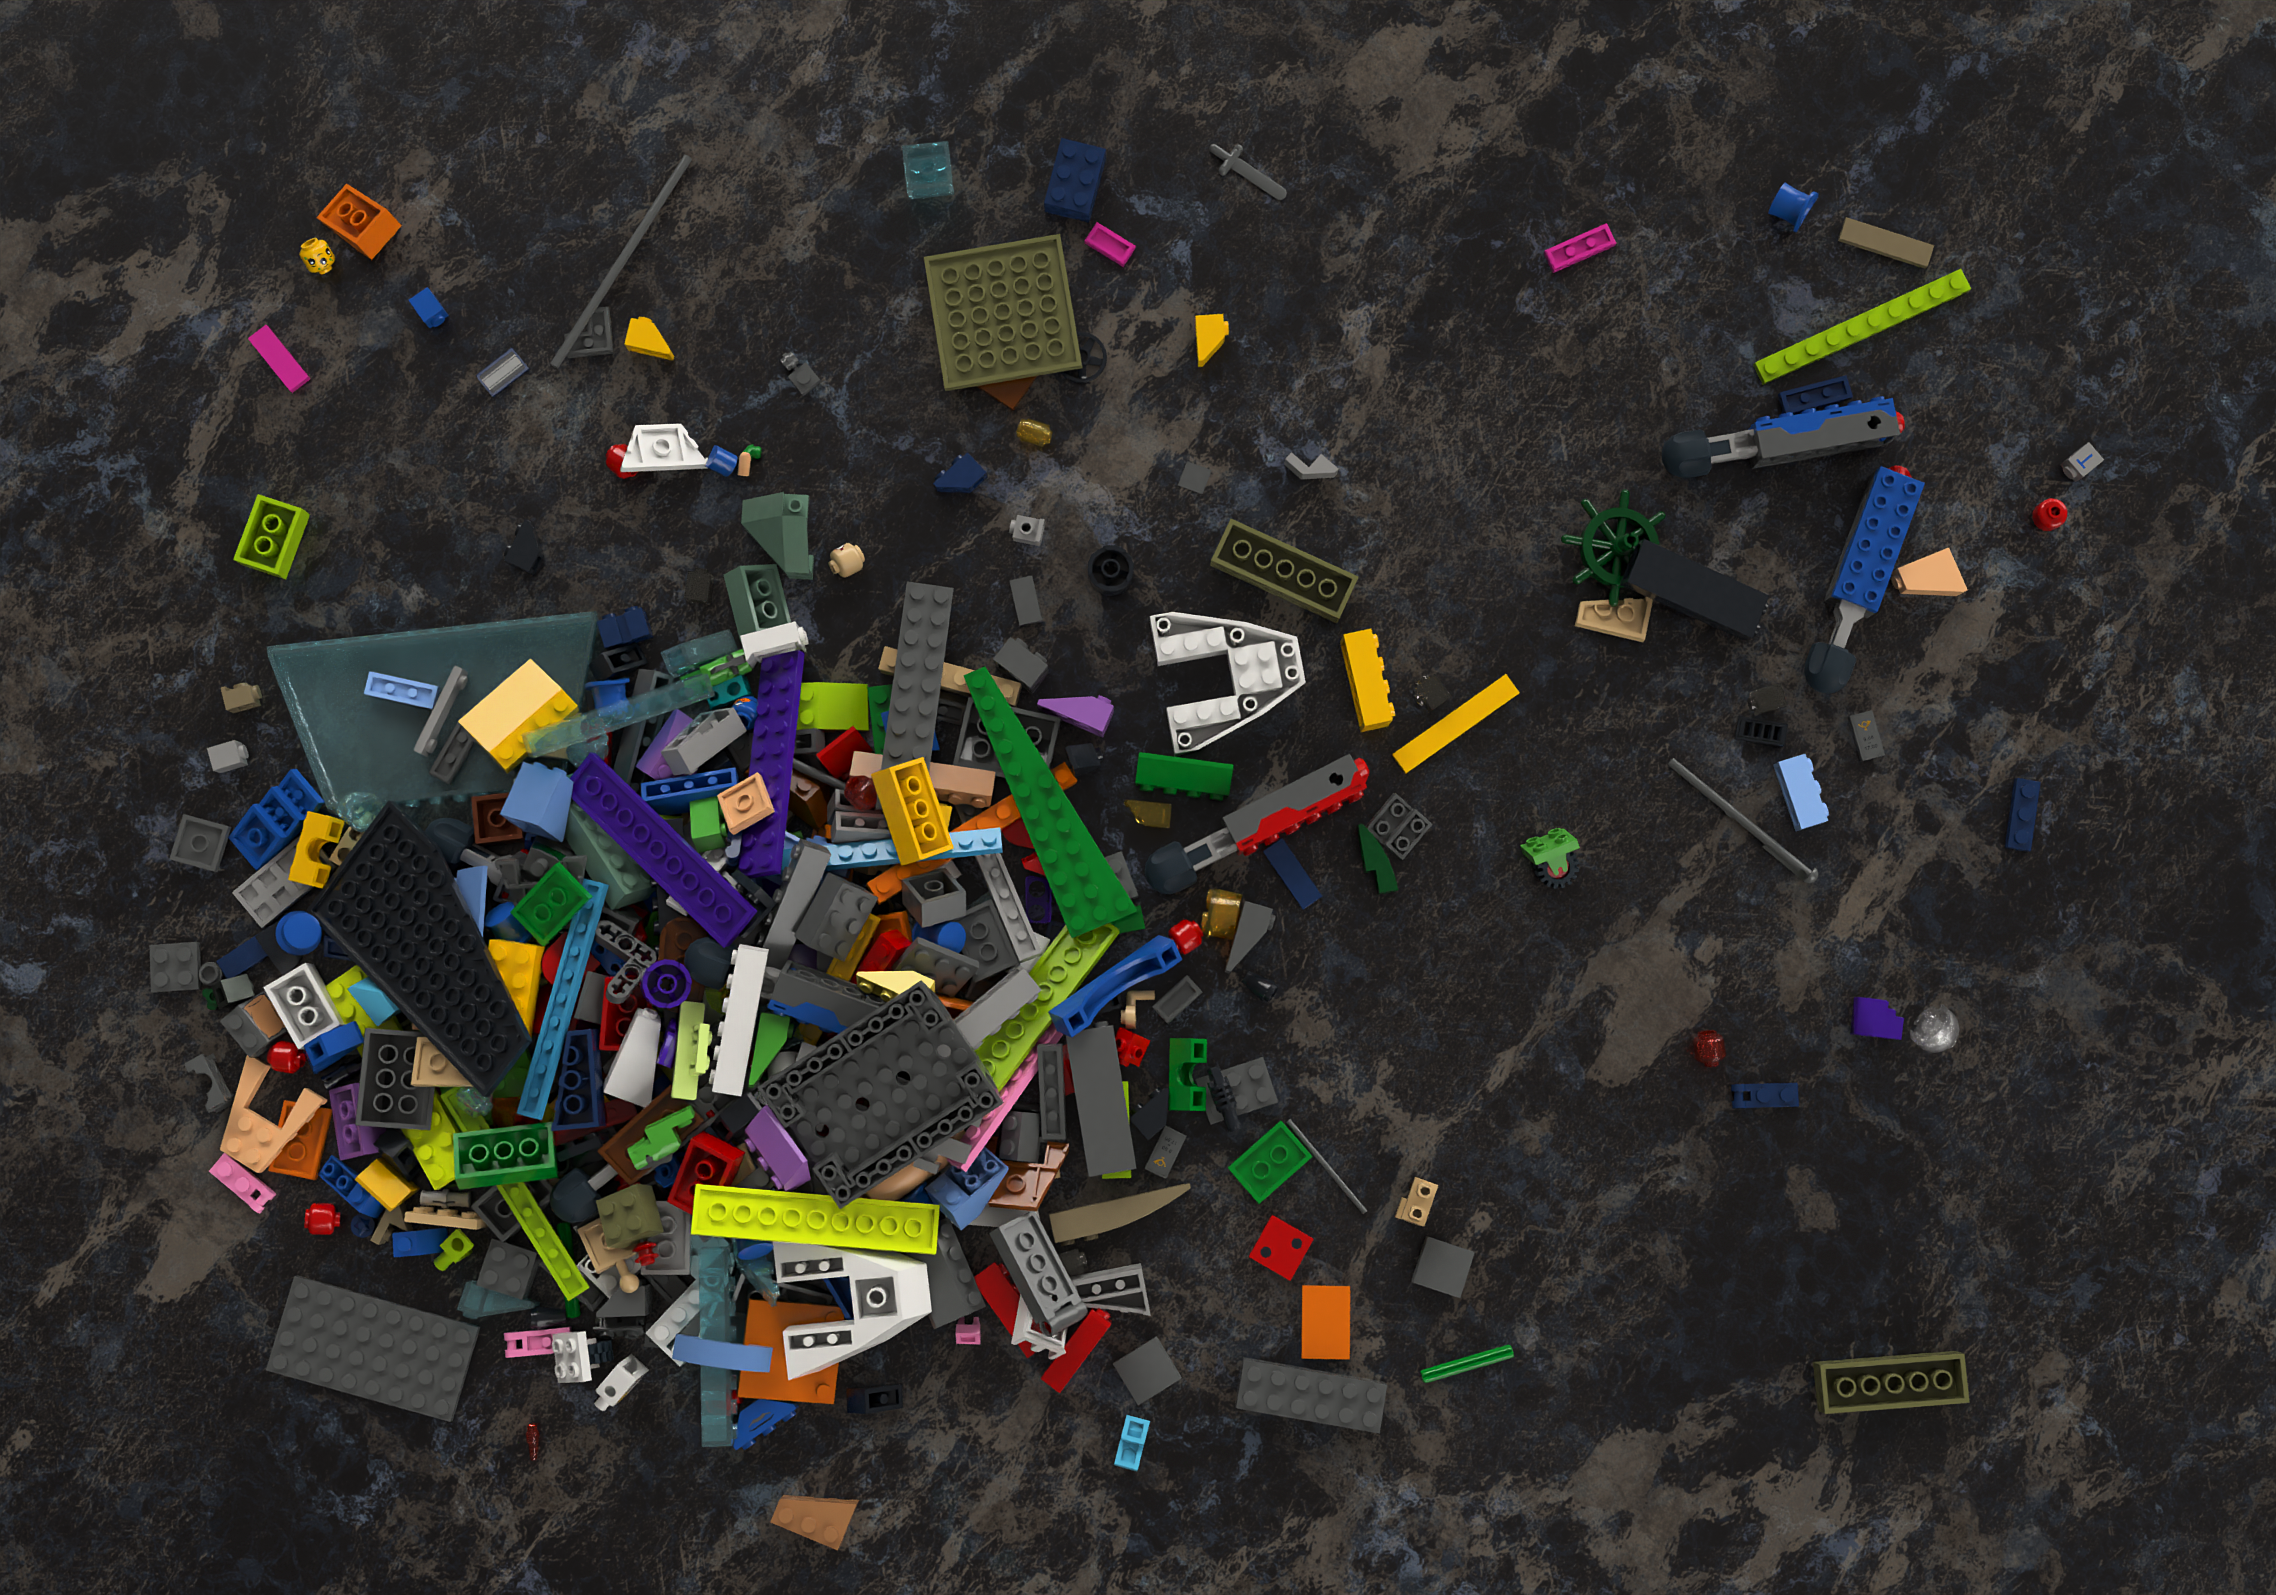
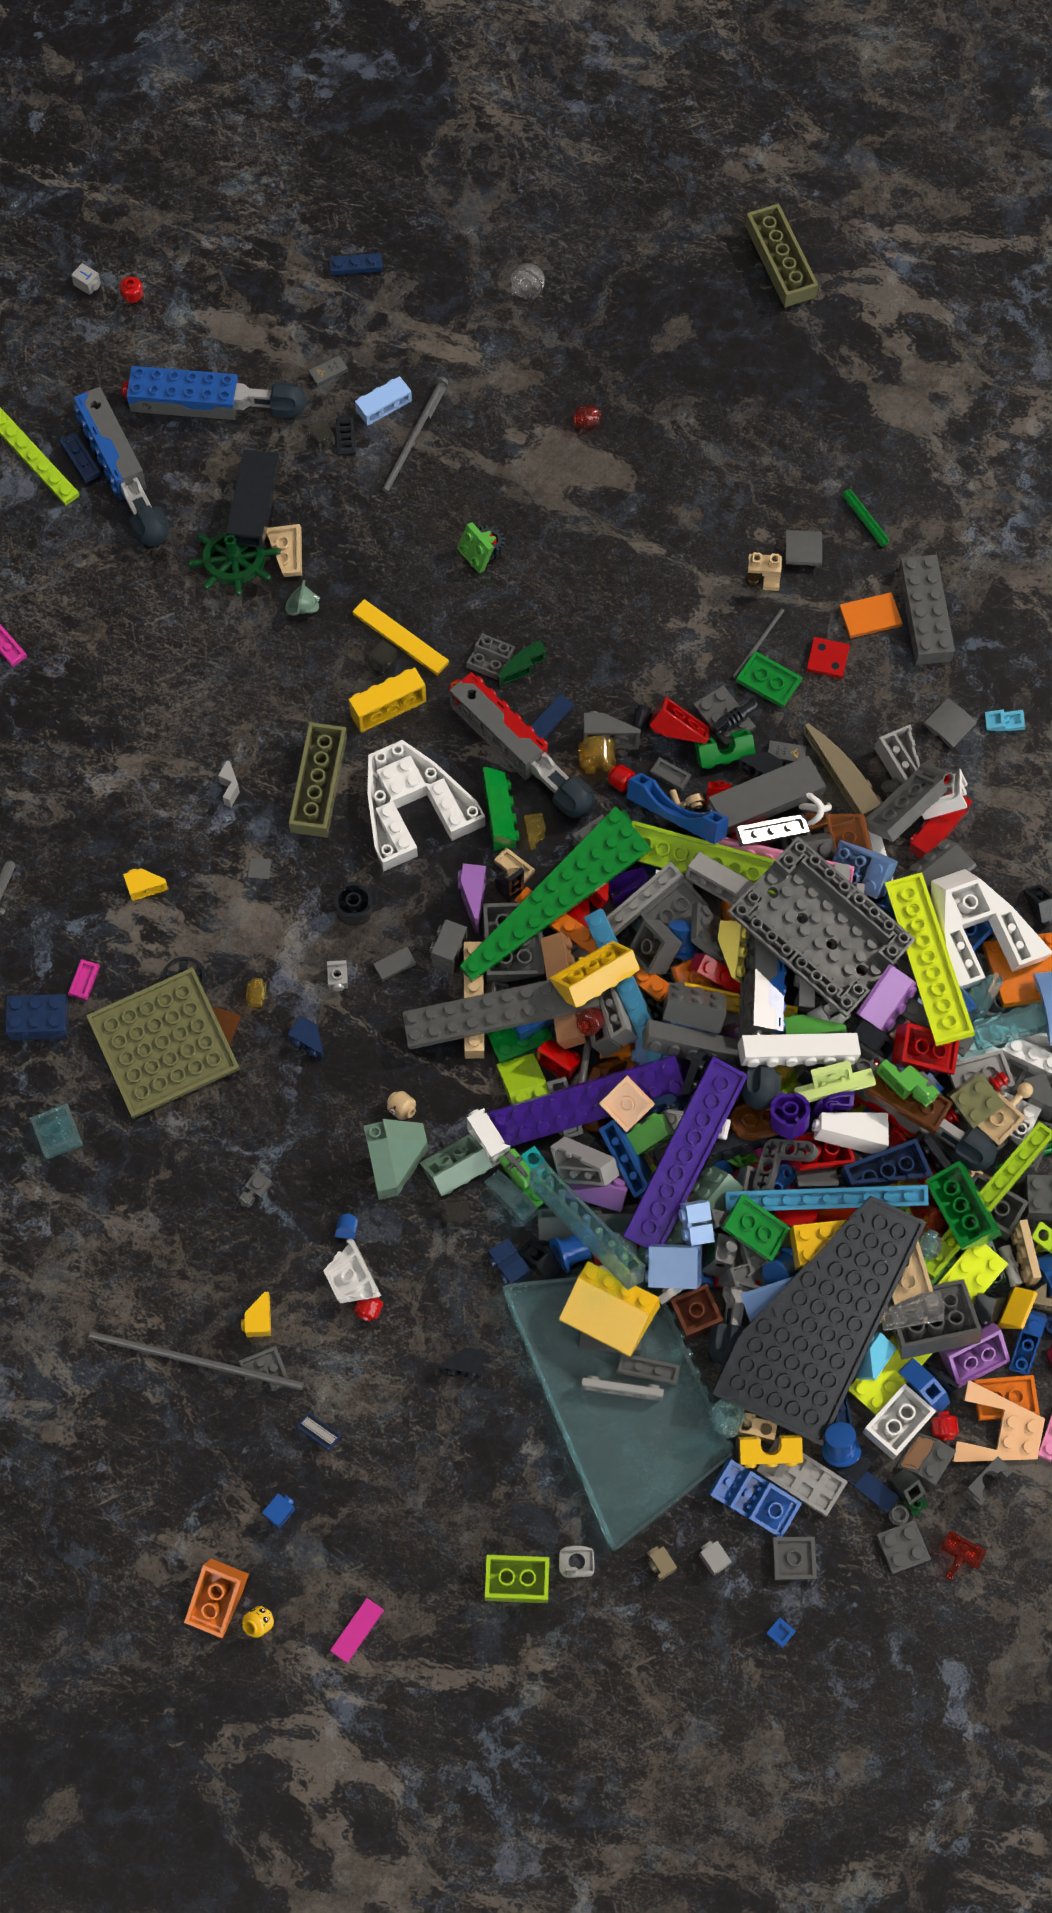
camera: 105 degrees left, 15 degrees down
(127, 802) = (780, 1632): none -> blue plate
(146, 1030) = (963, 1551): none -> clear red plate
(264, 597) = (571, 1572): none -> light grey piece
(401, 690) = (614, 1428): light blue plate -> none
(401, 1053) = (914, 1311): none -> clear slope
(579, 839) = (695, 1226): none -> light blue piece
(745, 457) = (332, 1208): arm -> none
(747, 710) = (544, 1142): blue head -> none
(968, 1333) = (970, 849): bright pink tile -> none
(1069, 1156) = (817, 807): none -> white piece
(1077, 1348) = (974, 776): red slope -> none
(1110, 775) = (508, 860): none -> tan tile
(1234, 1027) = (678, 723): none -> red slope
(1534, 614) = (302, 601): none -> sand green helmet
(1766, 1095) = (609, 376): dark blue plate -> none
(1875, 1019) = (533, 319): dark purple piece -> none
(1930, 576) = (196, 352): light nougat slope -> none

